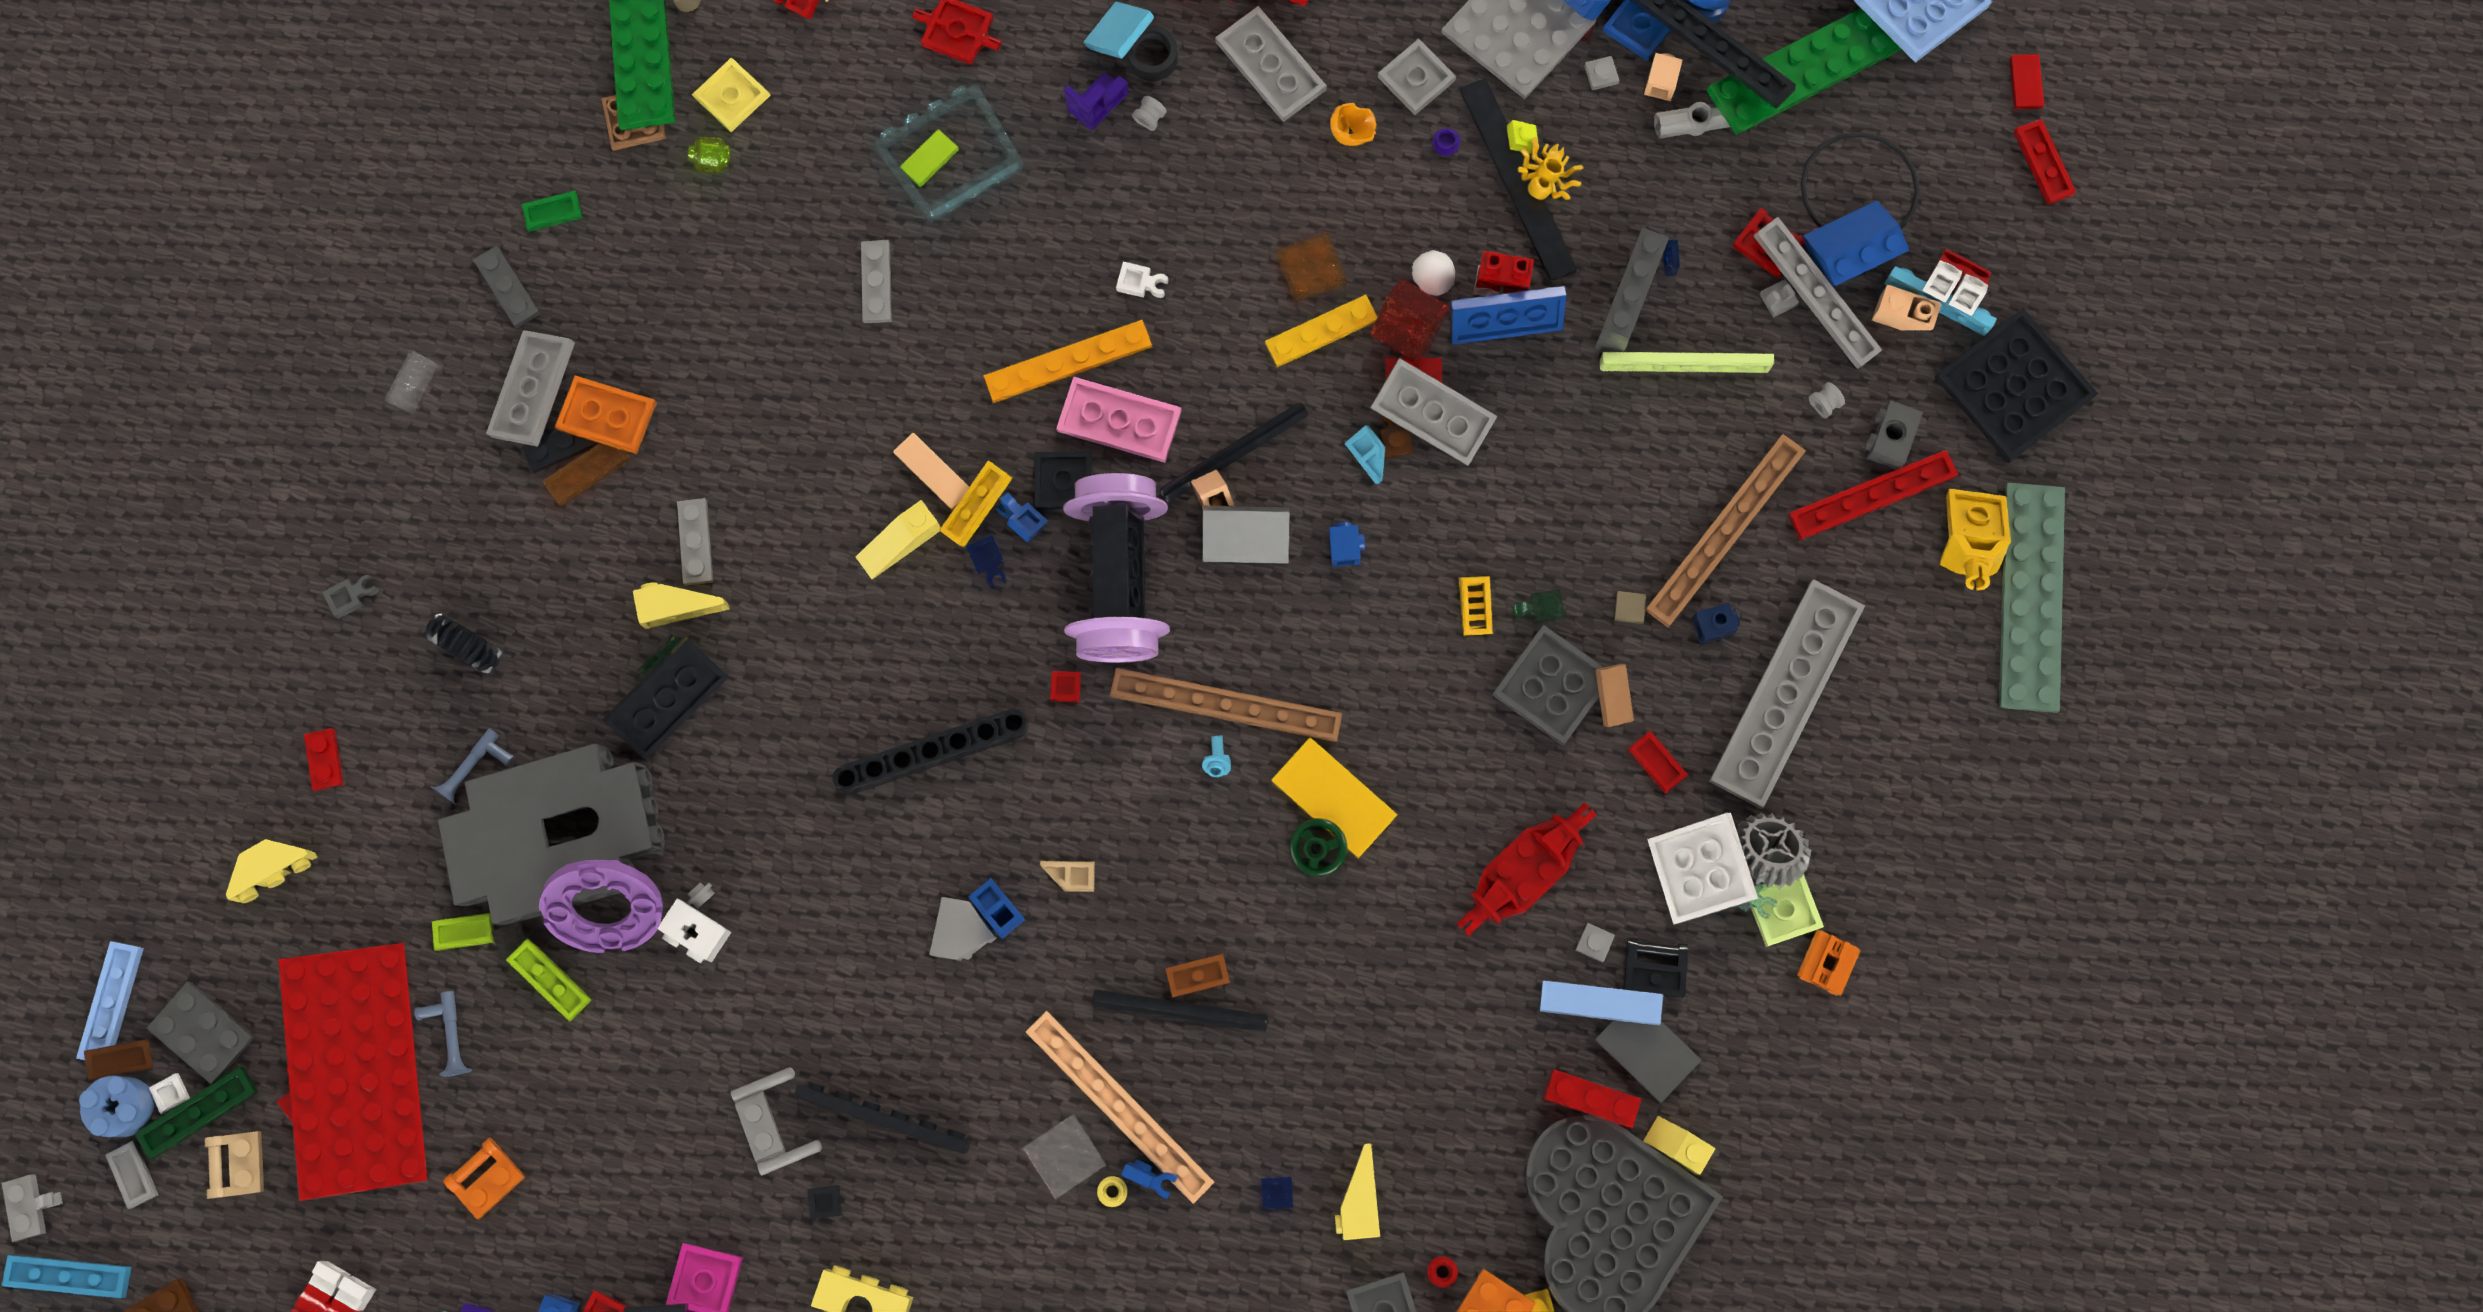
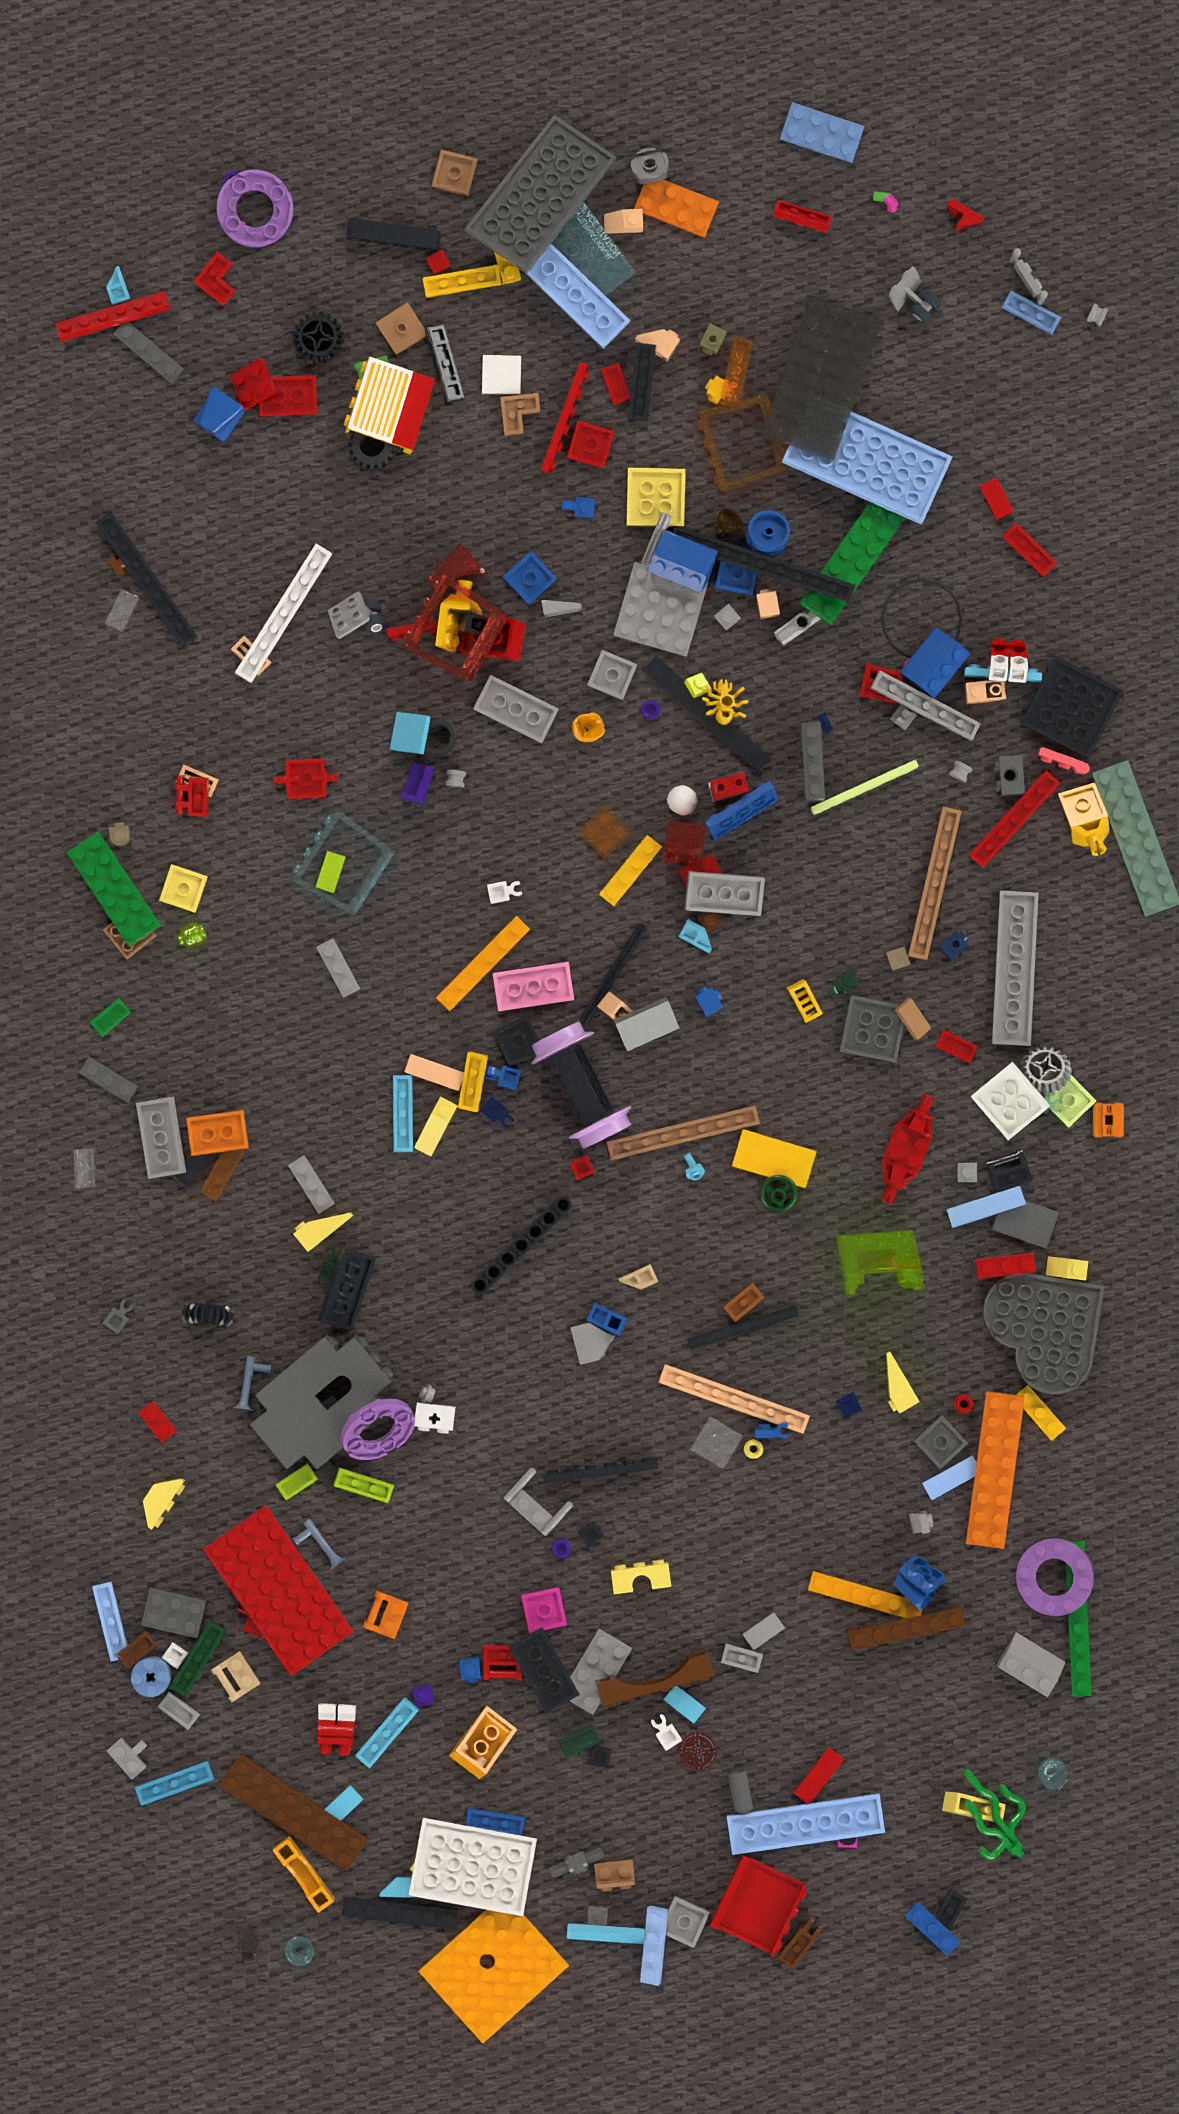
camera: 30 degrees left, 10 degrees up
(774, 1203) = (561, 1548): none -> dark purple plate
(863, 505) = (402, 1113): none -> medium azure tile
(1422, 992) = (878, 1254): none -> clear neon green windscreen
(1975, 448) = (1064, 761): none -> coral hinge

